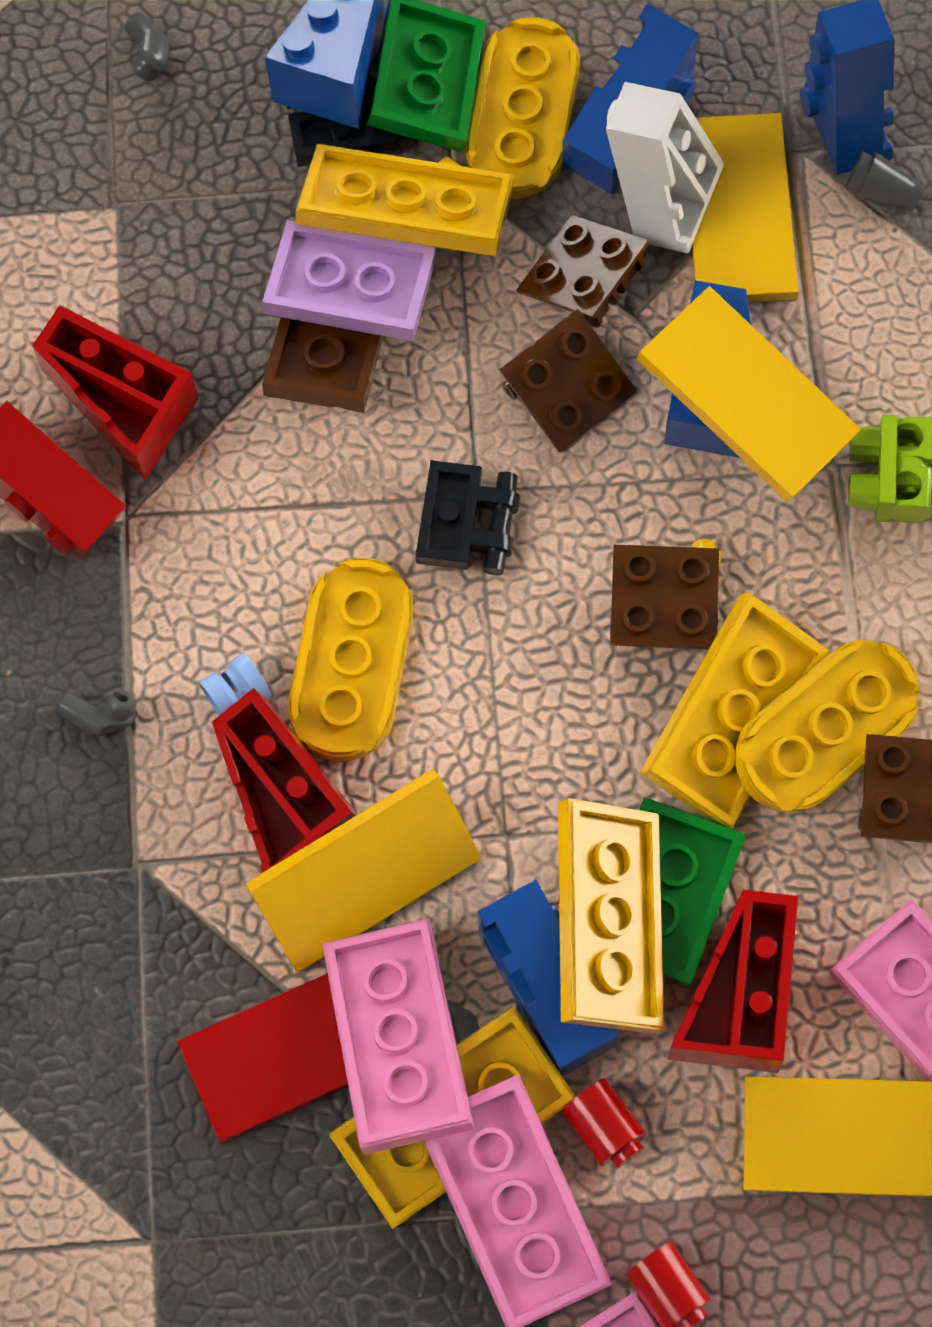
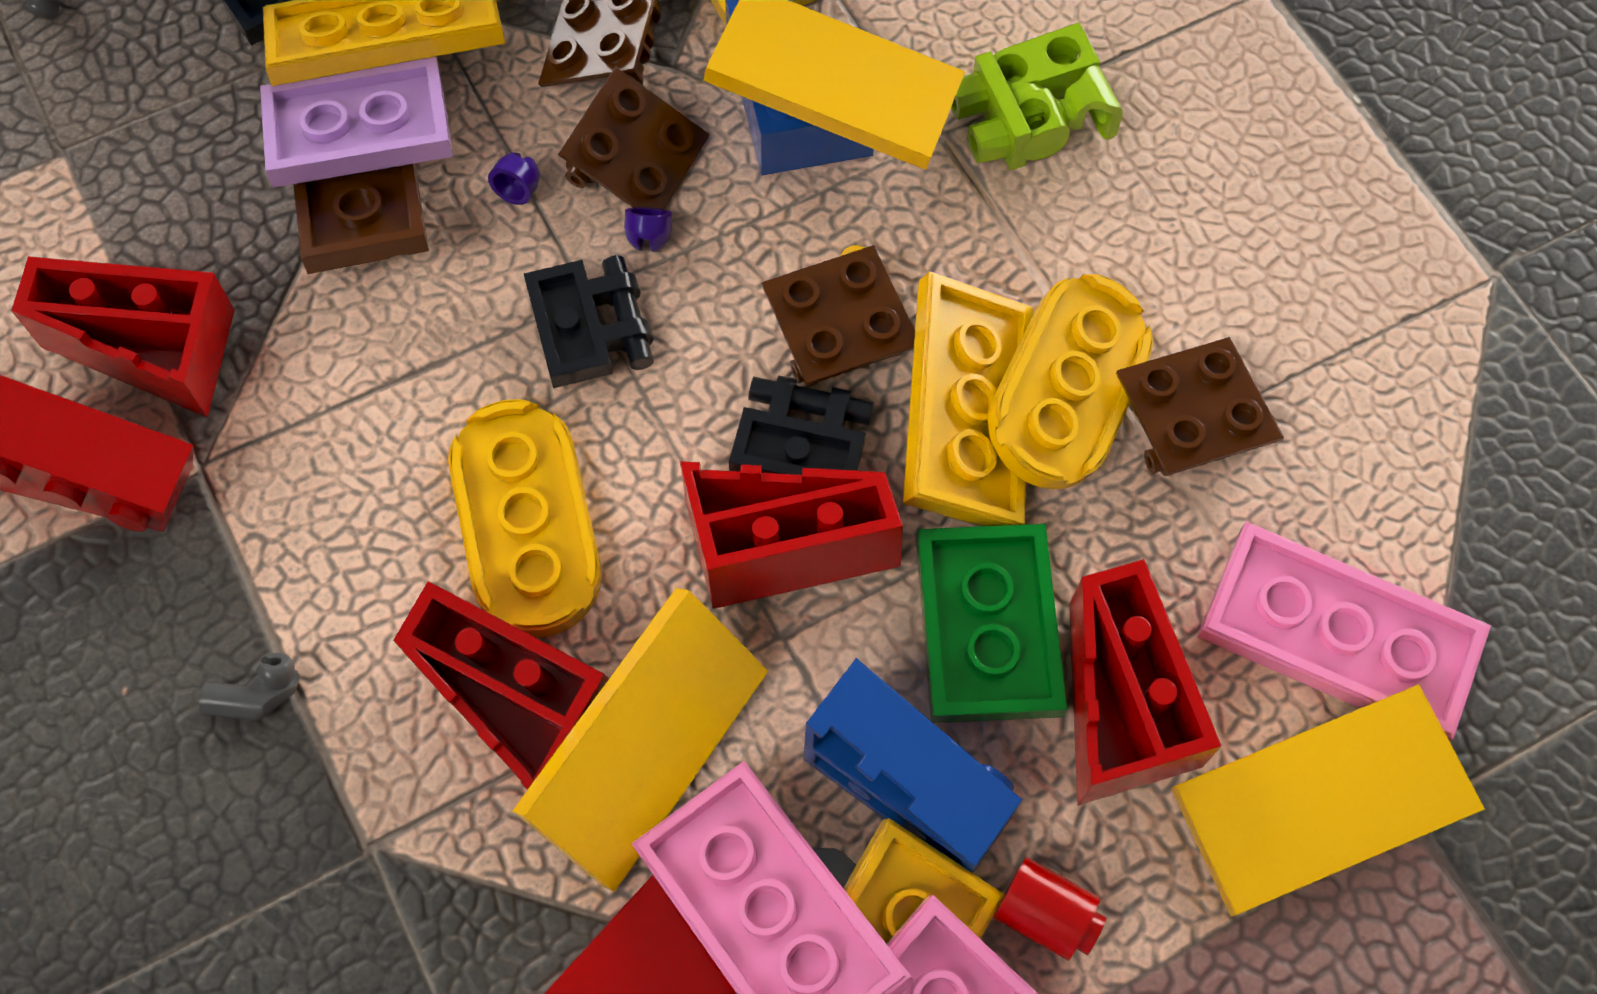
camera: 30 degrees left, 5 degrees down
(240, 676) = (395, 598): light blue wheel -> none
(460, 371) = (506, 173): none -> dark purple hinge
(538, 755) = (788, 530): none -> red wedge
(549, 455) = (648, 224): none -> dark purple hinge
(582, 694) = (790, 443): none -> black plate
(610, 917) = (952, 671): yellow tile -> none

